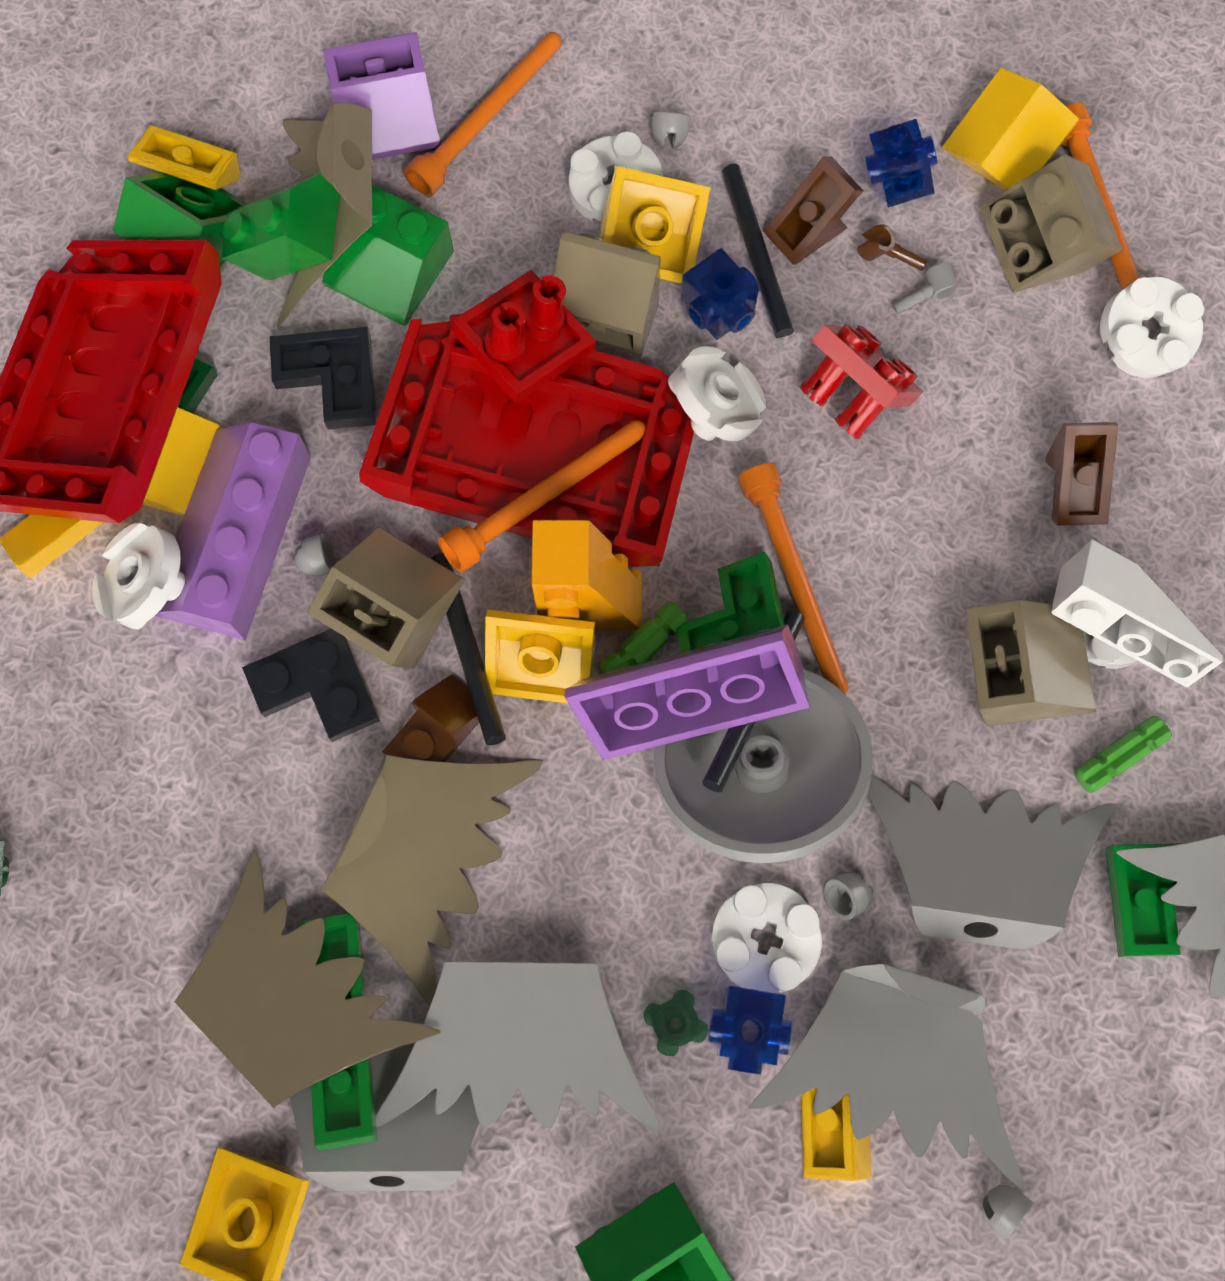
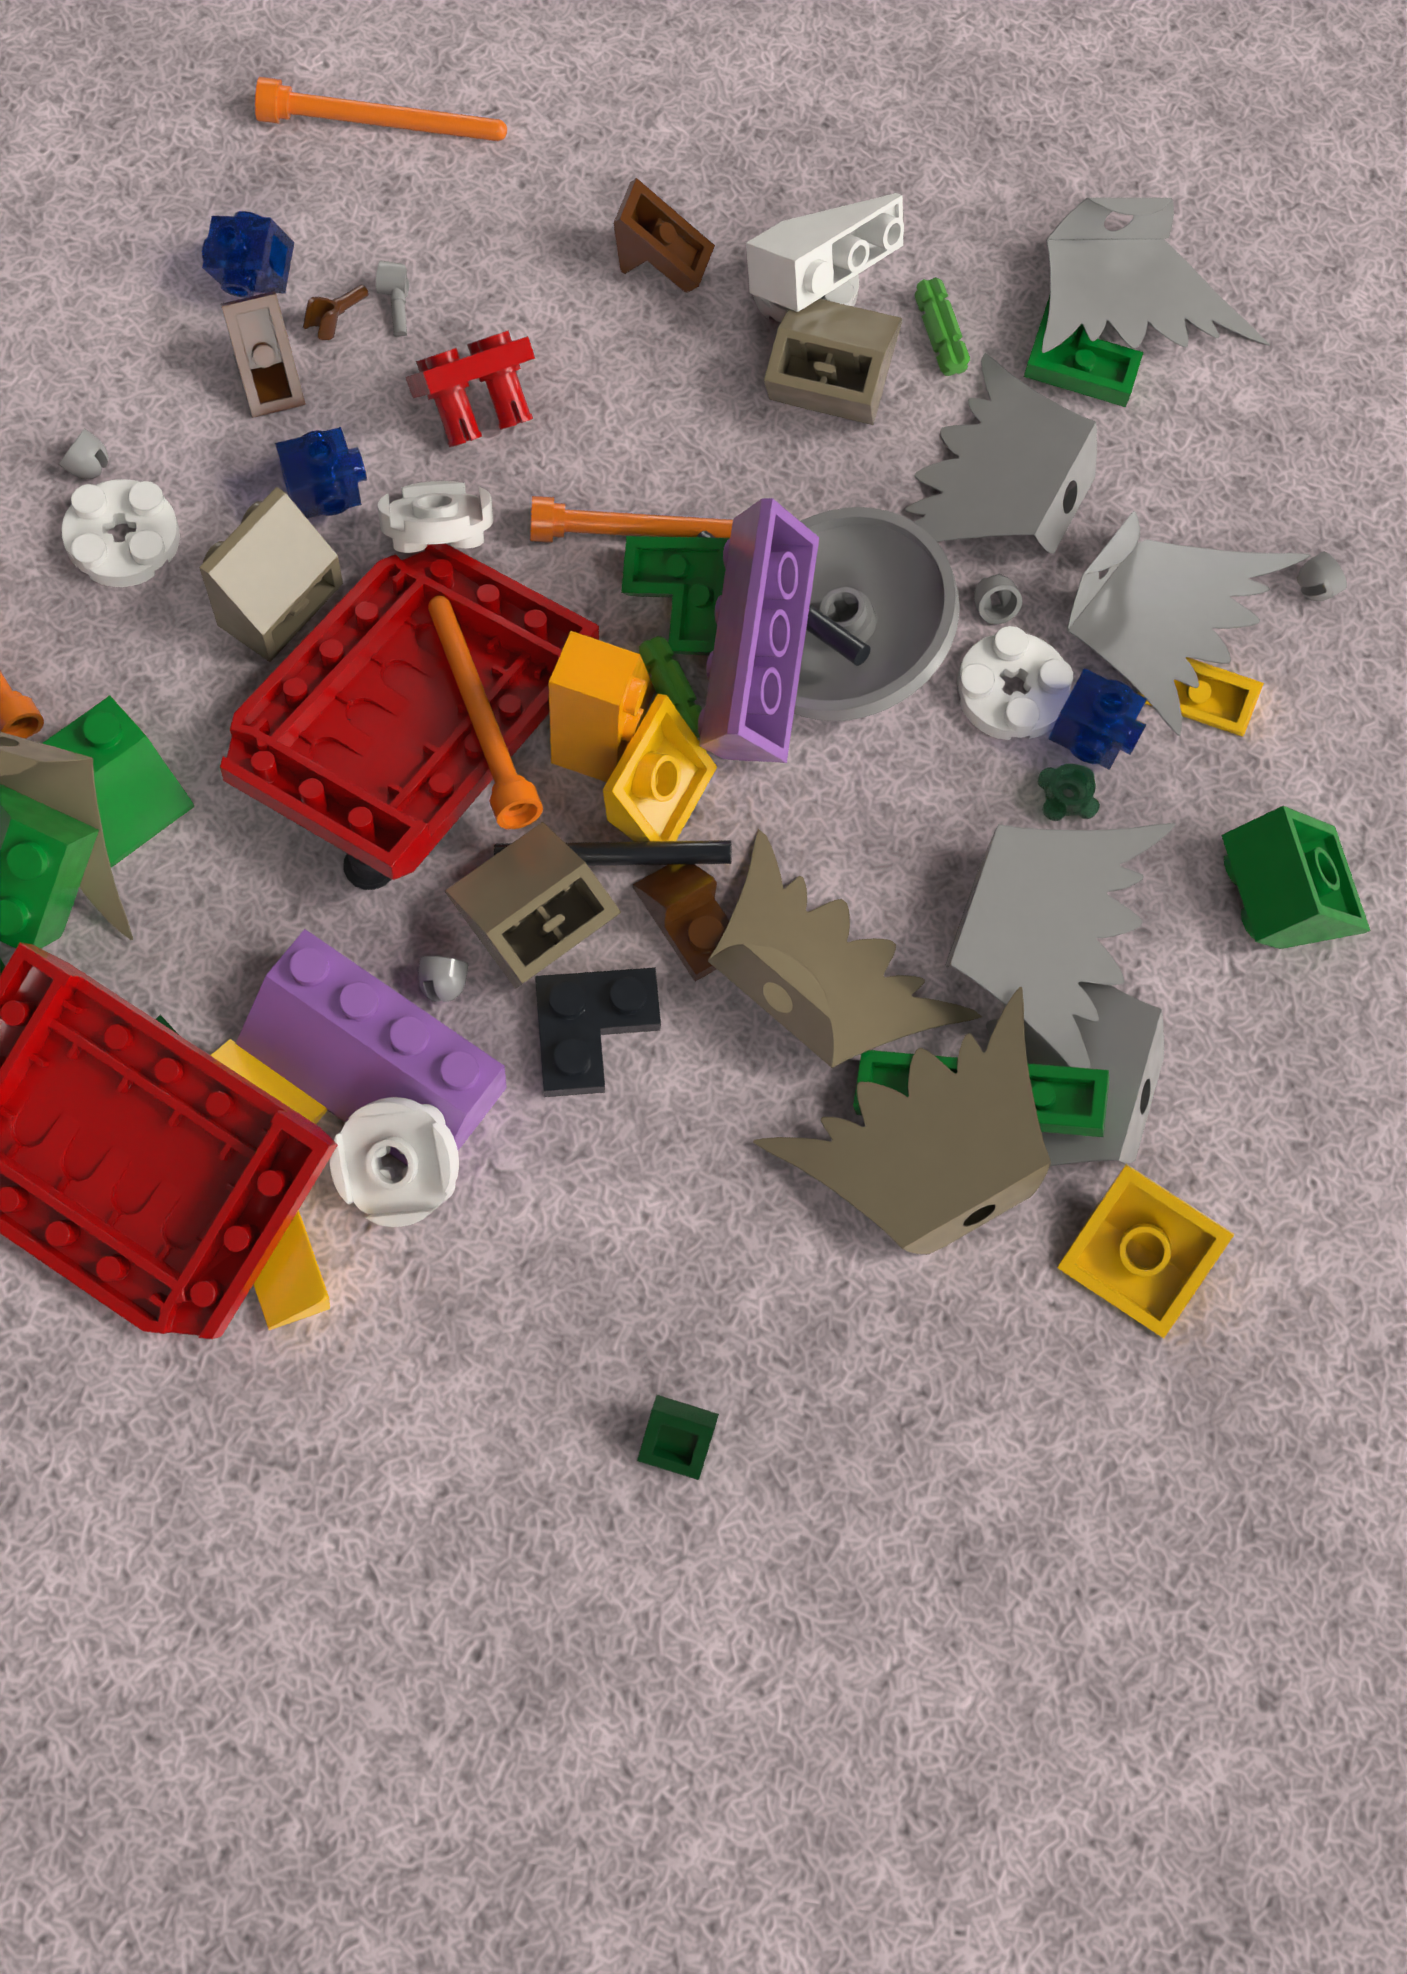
camera: 80 degrees left, 5 degrees down
(339, 363) = (215, 880): black plate -> none
(524, 334) = (294, 655): red plate -> none
(657, 216) = (195, 501): yellow slope -> none
(757, 251) = (262, 428): black bar -> none
(1011, 129) = (255, 150): yellow slope -> none
(1050, 225) = (381, 162): dark tan slope -> none
(1178, 317) = (531, 101): white plate -> none

